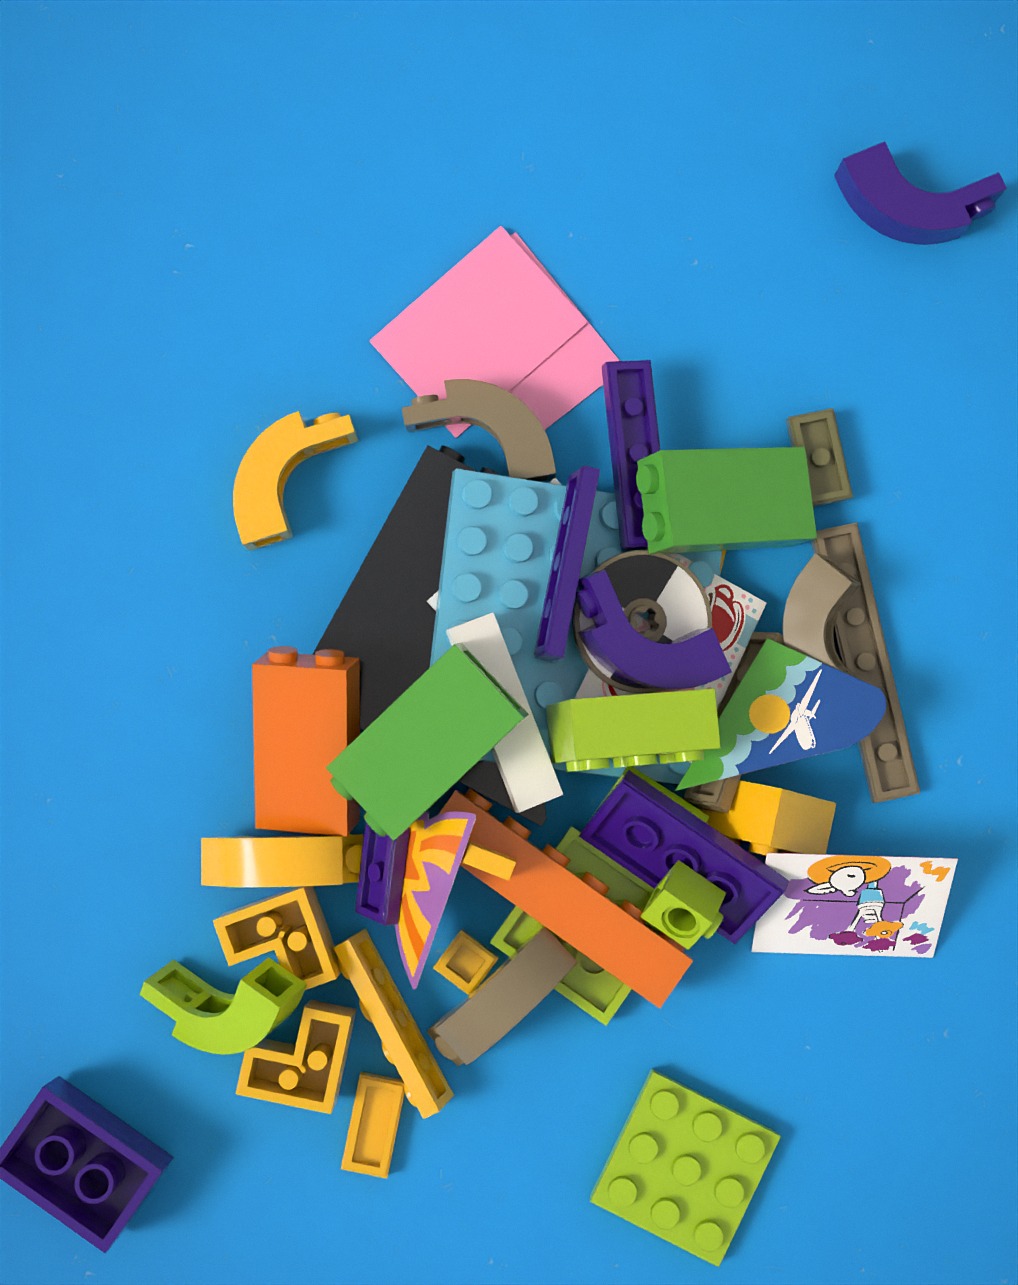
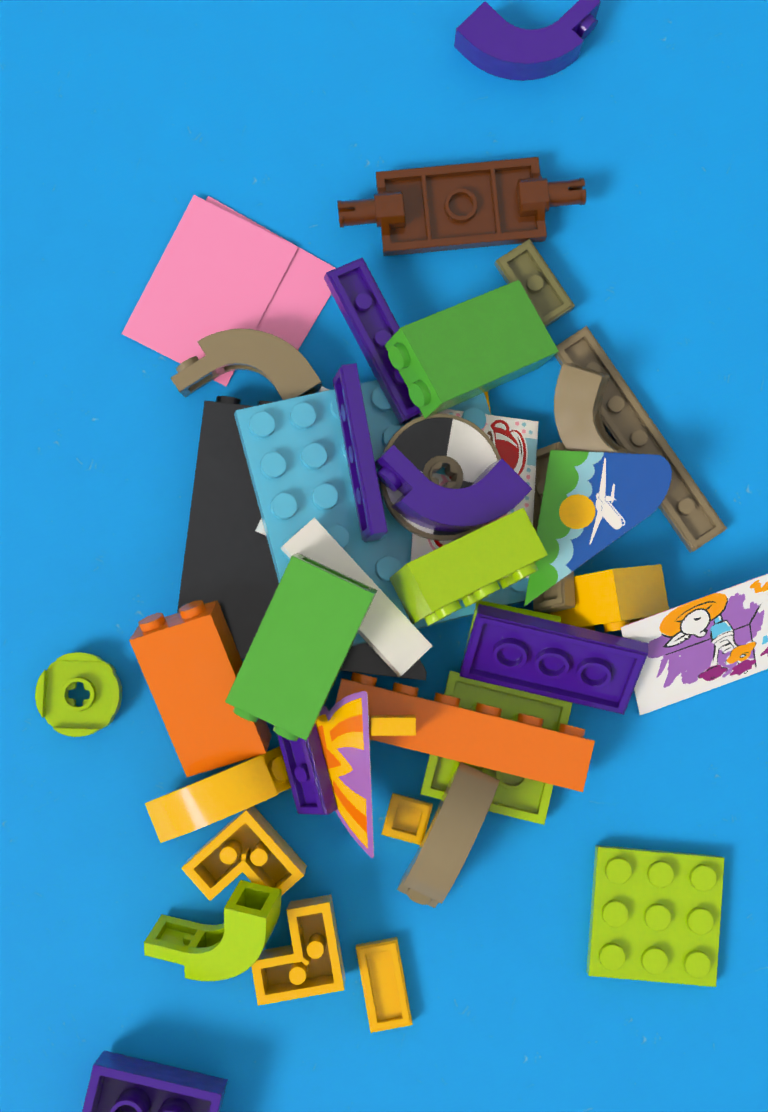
camera: 20 degrees left, 0 degrees up
(168, 673) = (61, 711): none -> lime plate
(266, 469) = (78, 472): yellow arch -> none
(399, 1033) = (366, 892): yellow plate -> none
(685, 906) = (570, 698): lime brick -> none
(775, 345) = (461, 205): none -> reddish brown plate

